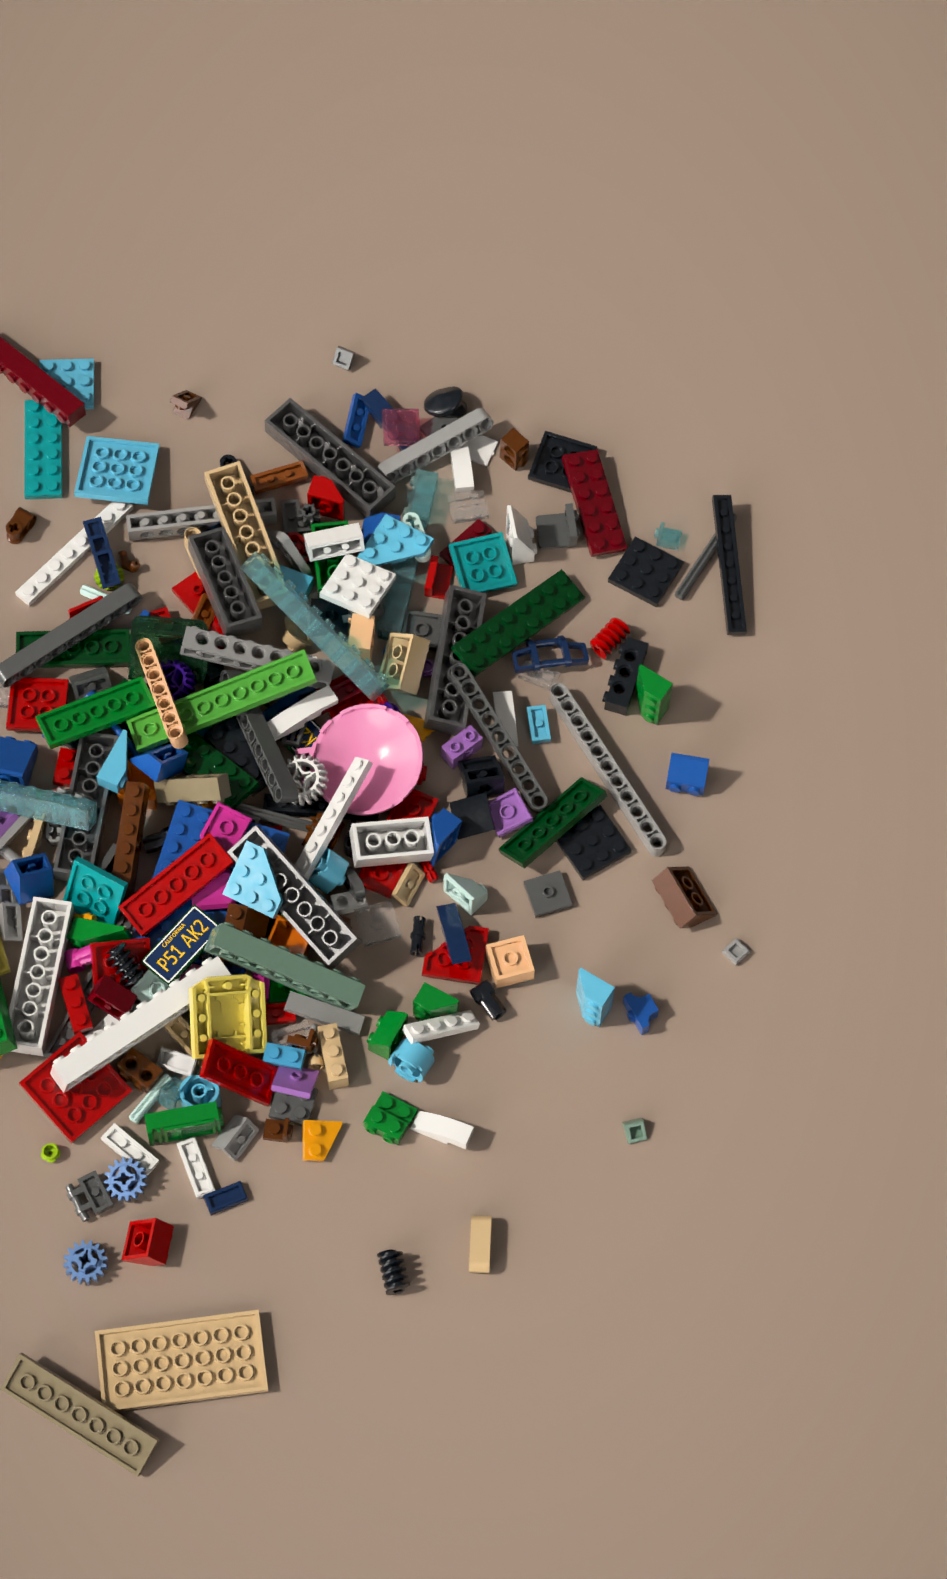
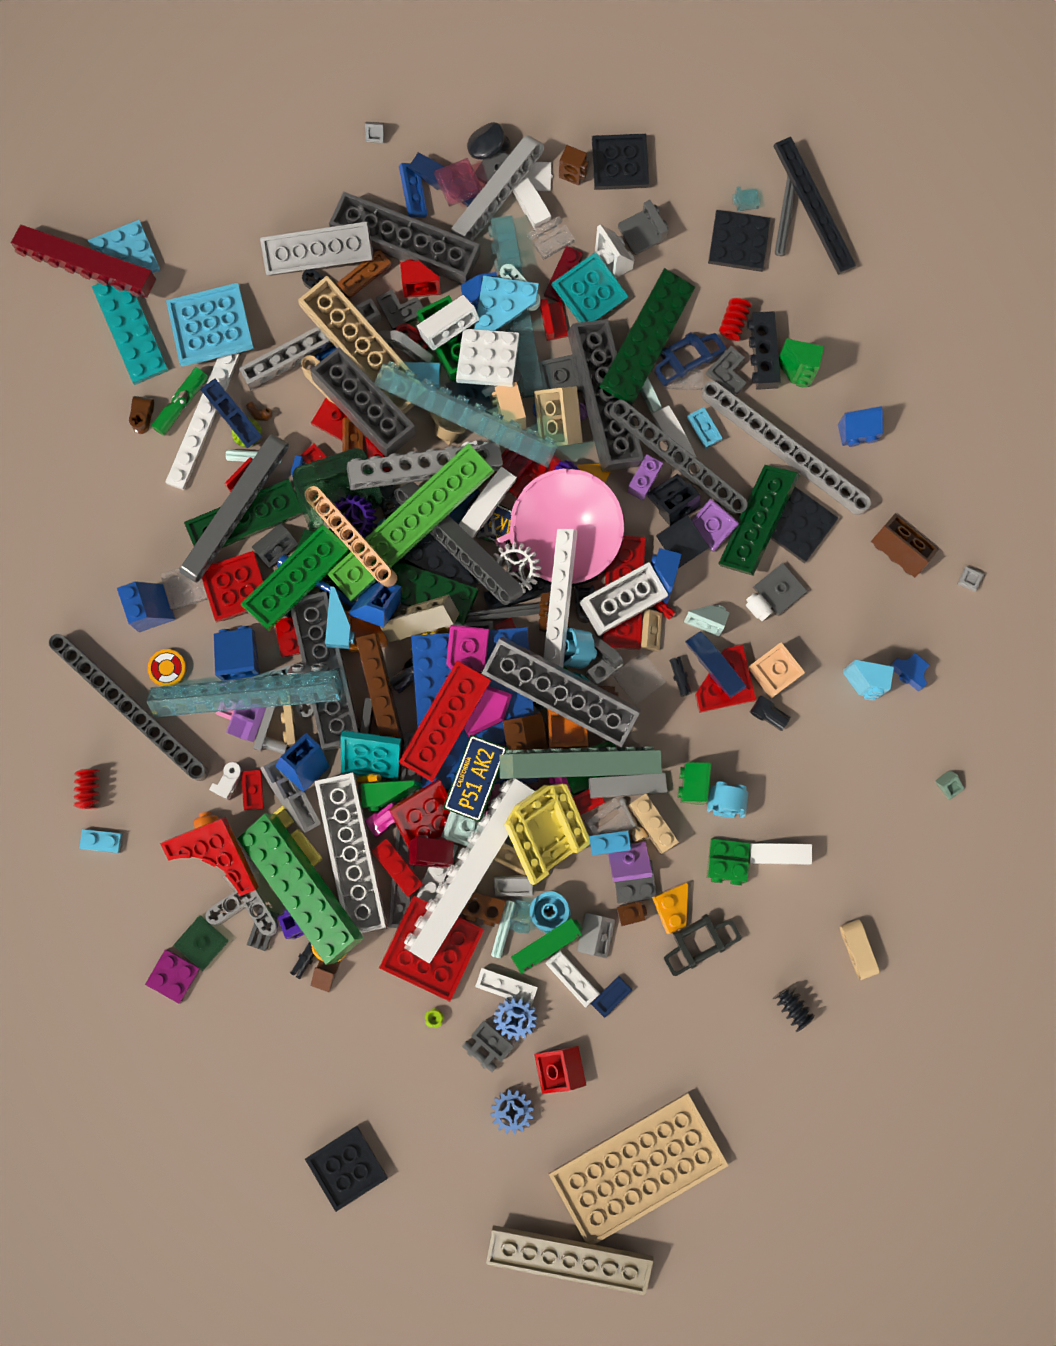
camera: 20 degrees left, 15 degrees up
(49, 533) = (172, 410): none -> green piece
(125, 964) = (430, 816): black piece -> none
(185, 403) = (245, 232): reddish brown slope -> none
(238, 1072) = (577, 877): red plate -> none
(244, 438) = (317, 248): none -> light grey plate
(254, 881) = (520, 694): medium azure plate -> none
(301, 1042) = (621, 826): reddish brown bracket -> none
(308, 514) = (405, 300): dark grey gear -> none
(347, 1191) = (718, 947): none -> pearl dark grey bar
(433, 1003) = (724, 740): green slope -> none
(441, 1026) = (741, 759): white plate -> none
(498, 673) = (650, 397): none -> light aqua beam
(520, 901) = (759, 606): none -> white brick
(579, 680) = (723, 371): none -> dark grey plate
(594, 503) = (666, 190): dark red plate -> none

